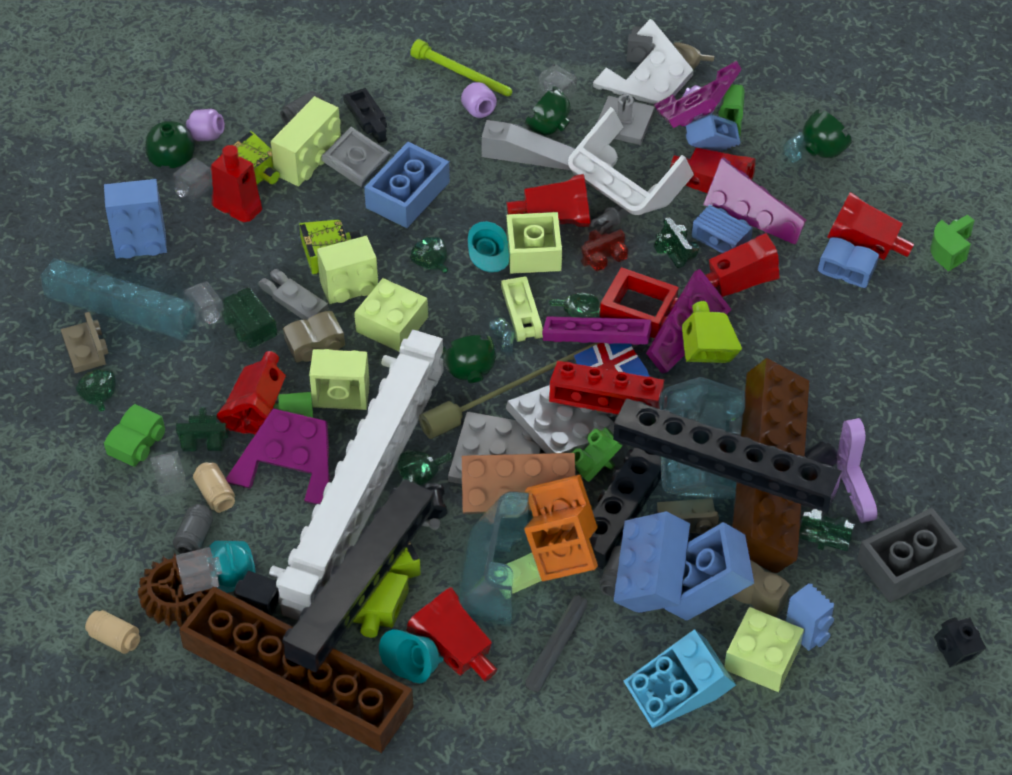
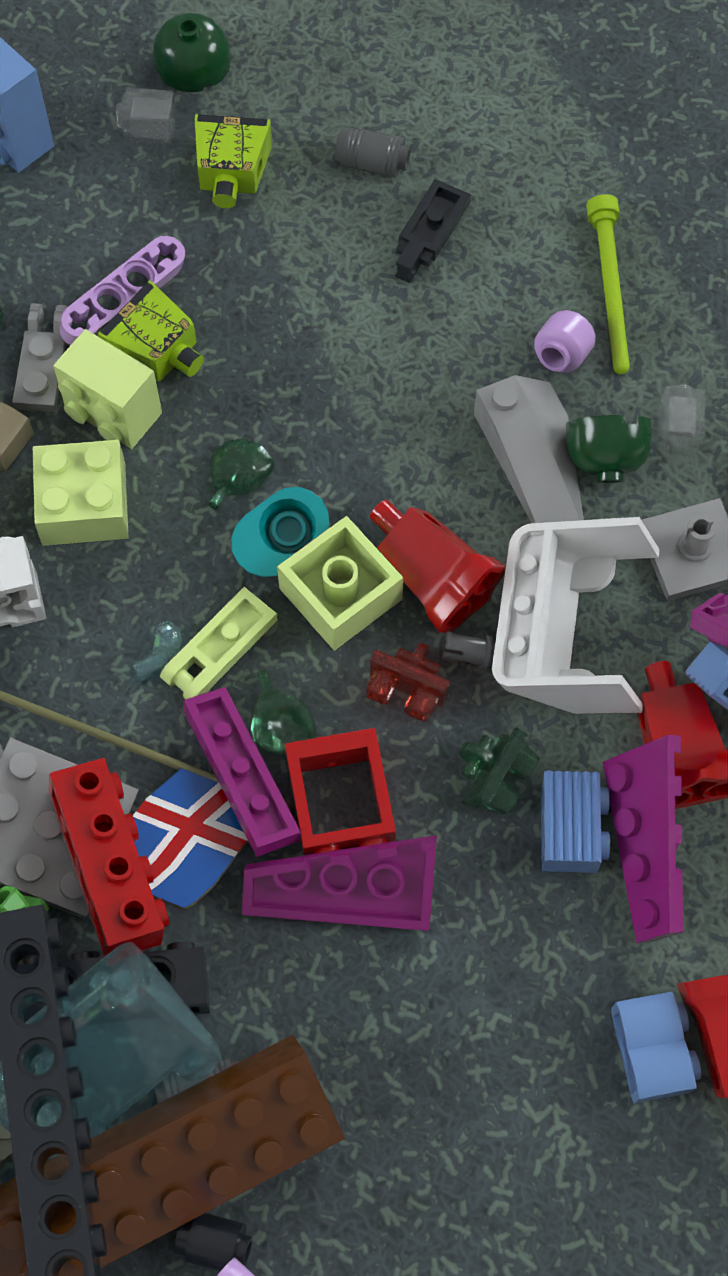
camera: 55 degrees right, 15 degrees up
(205, 124) = (253, 65): lavender head -> none
(235, 186) = (154, 168): red piece -> none
(289, 242) = (119, 287): none -> lavender beam
(304, 140) = (301, 191): yellowish green brick -> none
(355, 156) = (339, 266): light grey plate -> none
(407, 184) = (325, 358): medium blue brick -> none
(470, 358) = (64, 641): dark green cylinder -> none
(709, 336) = (332, 932): lime torso -> none
(744, 266) = (511, 896): red piece -> none

